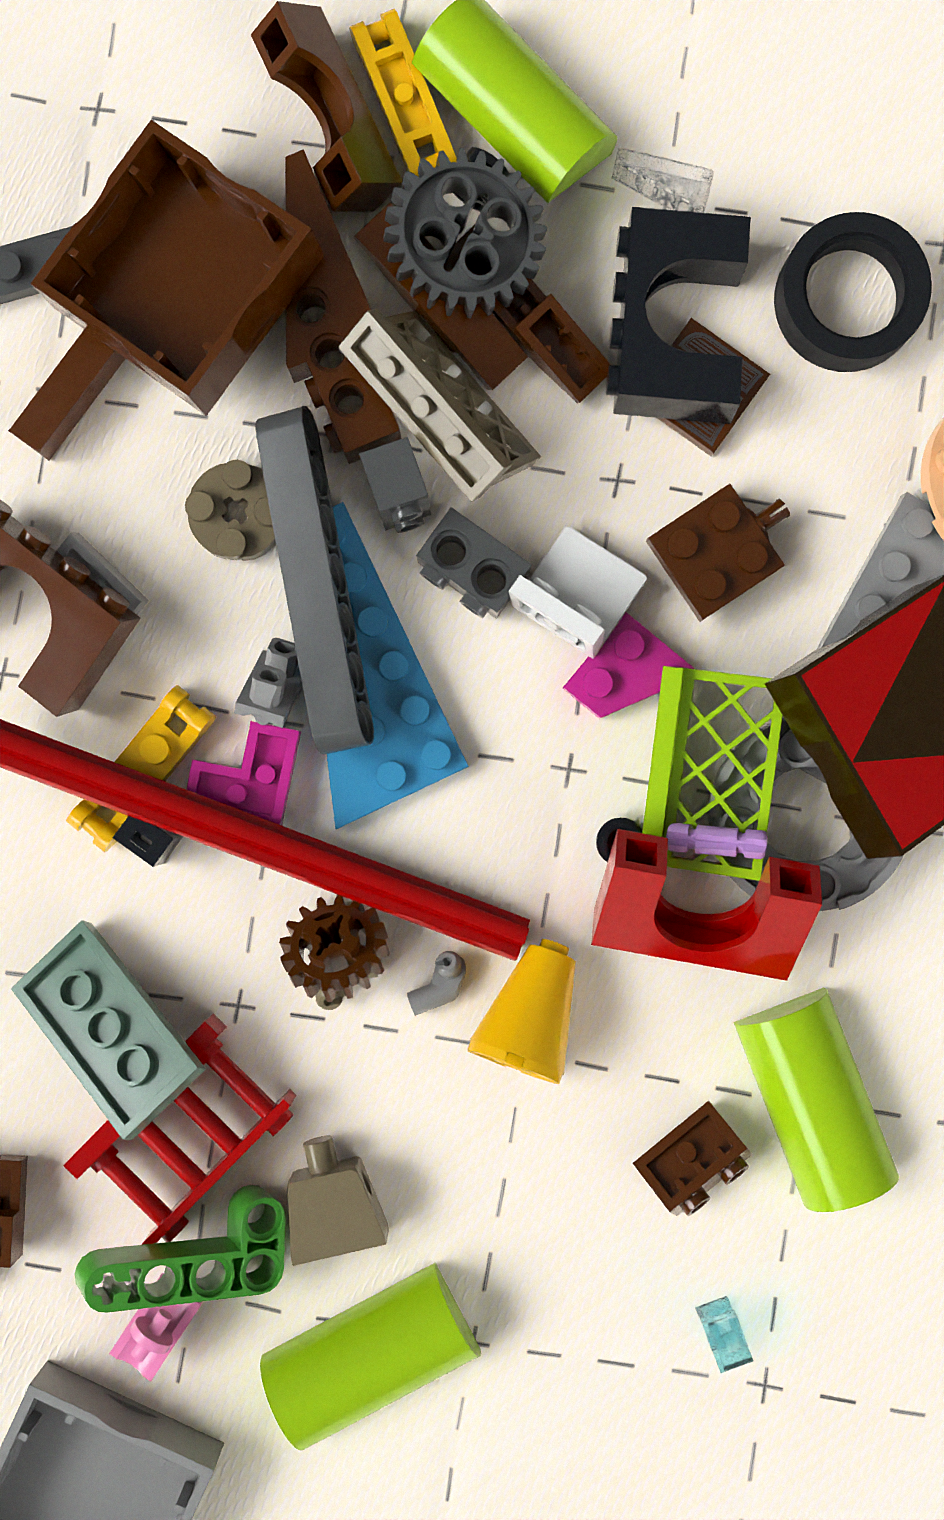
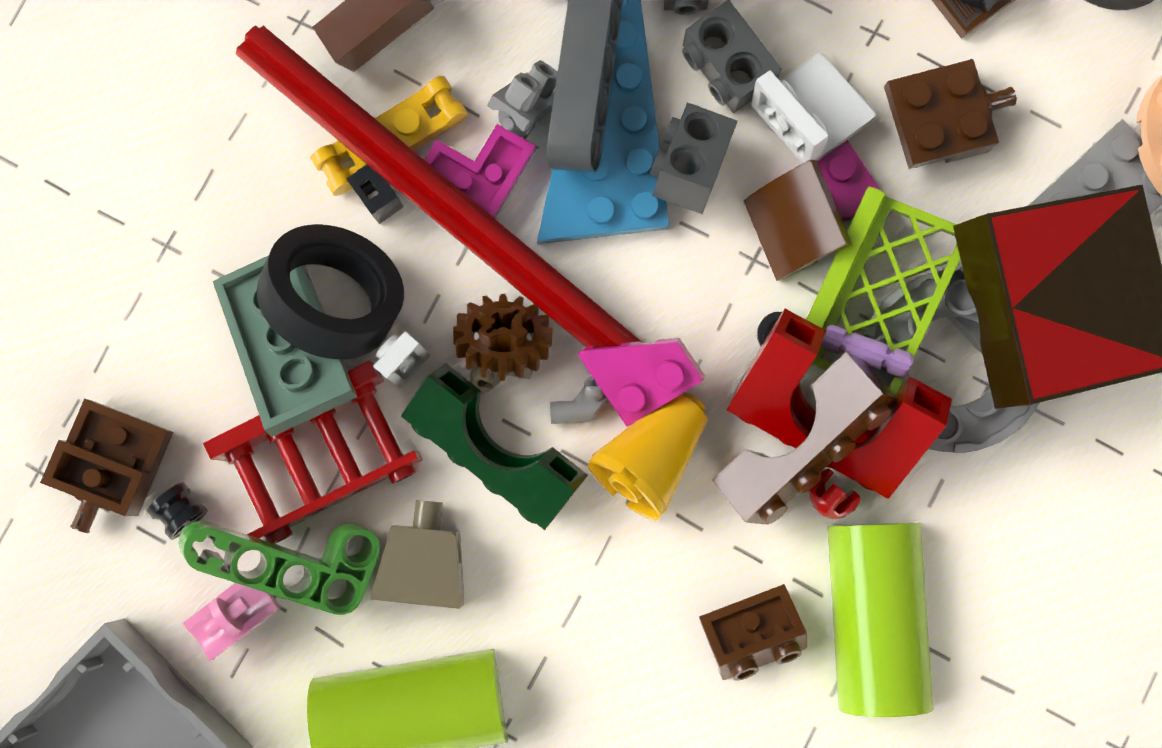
camera: 25 degrees right, 5 degrees down
(61, 1238) = (176, 510): none -> black wheel
(130, 1021) = (310, 328): none -> black tyre
(236, 1009) = (400, 358): none -> white plate
(414, 1087) = (449, 416): none -> dark green arch
(473, 690) = (693, 158): none -> dark grey brick
(492, 942) = (642, 375): none -> dark pink wing
(601, 722) = (797, 220): none -> reddish brown slope
(713, 908) = (847, 404): none -> arch
(728, 1003) = (834, 501): none -> red arm

